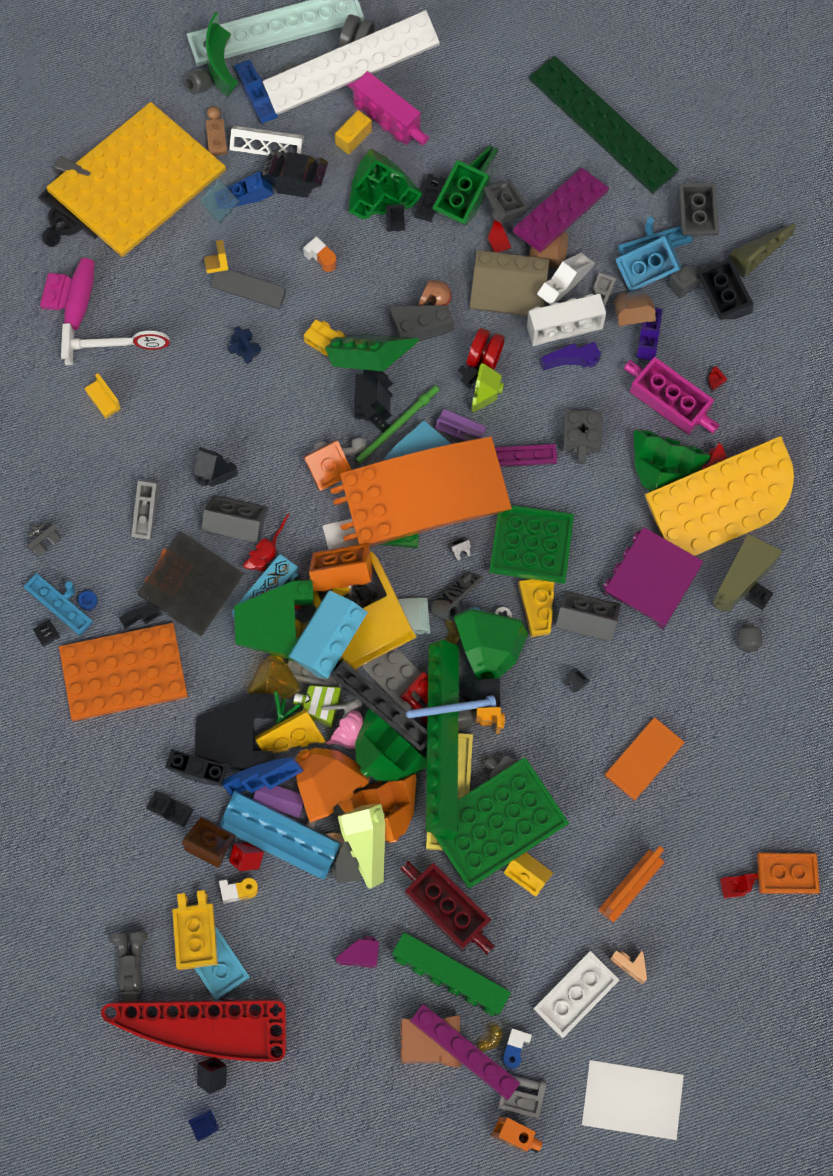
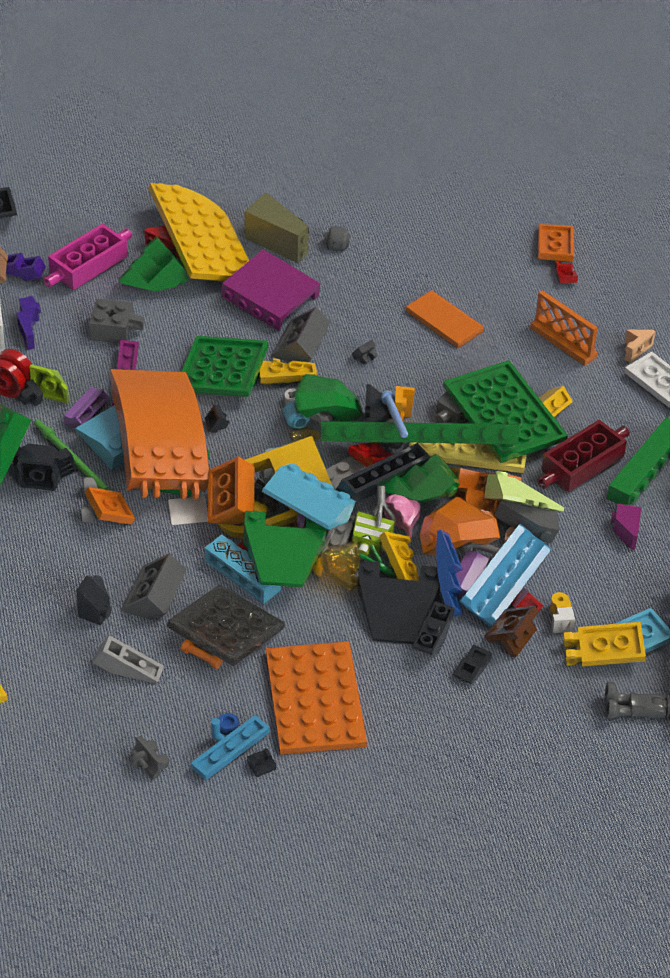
camera: 85 degrees left, 25 degrees down
(147, 614) = (255, 675): black slope -> none
(264, 552) = (198, 567): red animal -> none
(448, 602) = (269, 423): dark grey door -> none
(716, 378) = (71, 233): red tile -> none

